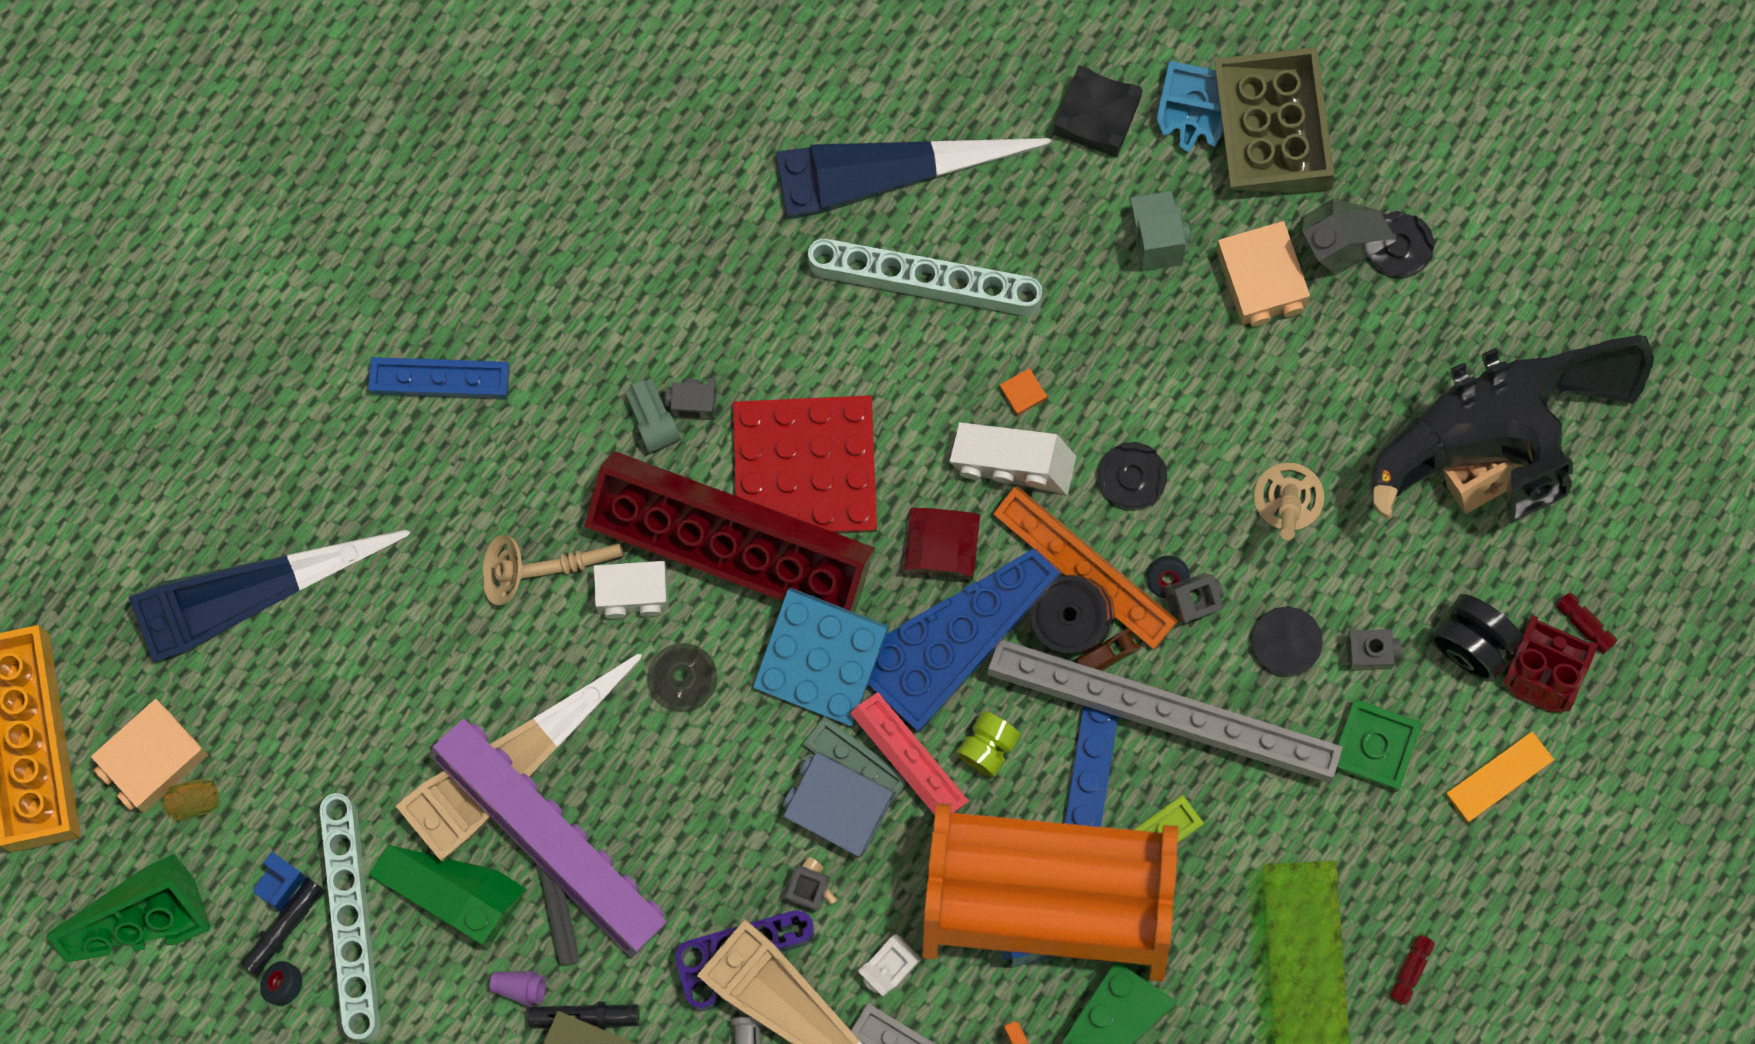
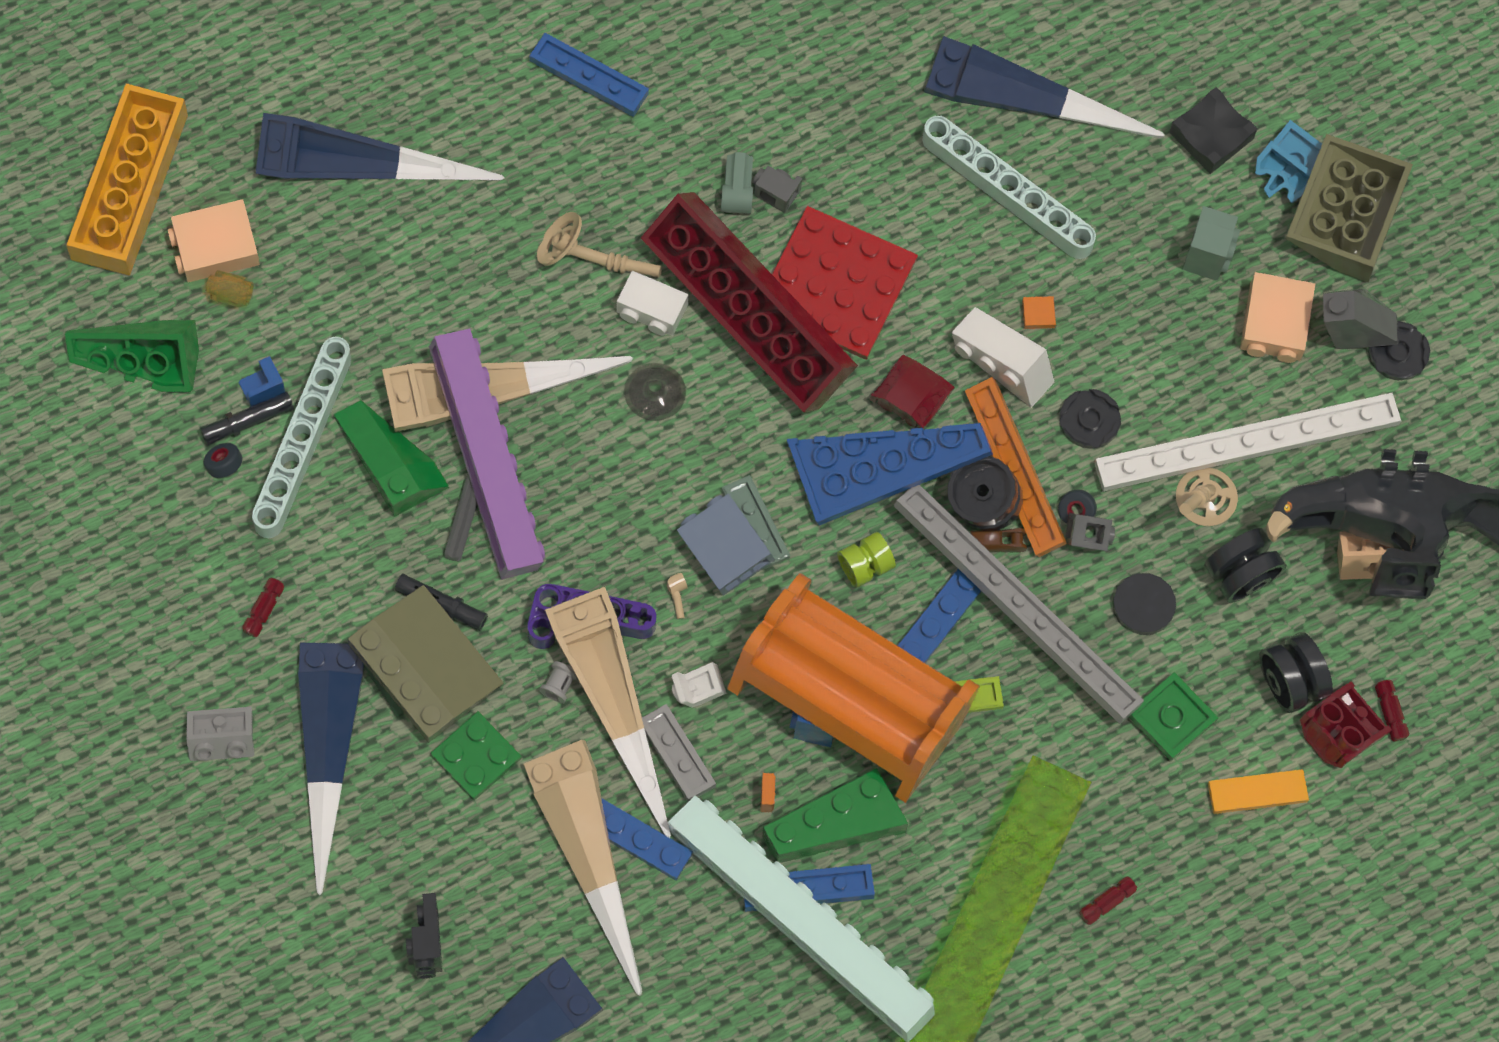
camera: 15 degrees right, 5 degrees down
(519, 986) = (406, 556): medium lavender cone -> none
(807, 887) = (666, 594): dark grey slope -> none
(820, 656) = (771, 427): dark azure plate -> none
(907, 754) = (798, 532): coral plate -> none
(1300, 419) = (1247, 442): none -> white plate
(1362, 658) = (1200, 648): dark grey brick -> none
(1372, 554) = (1245, 565): none -> black wheel

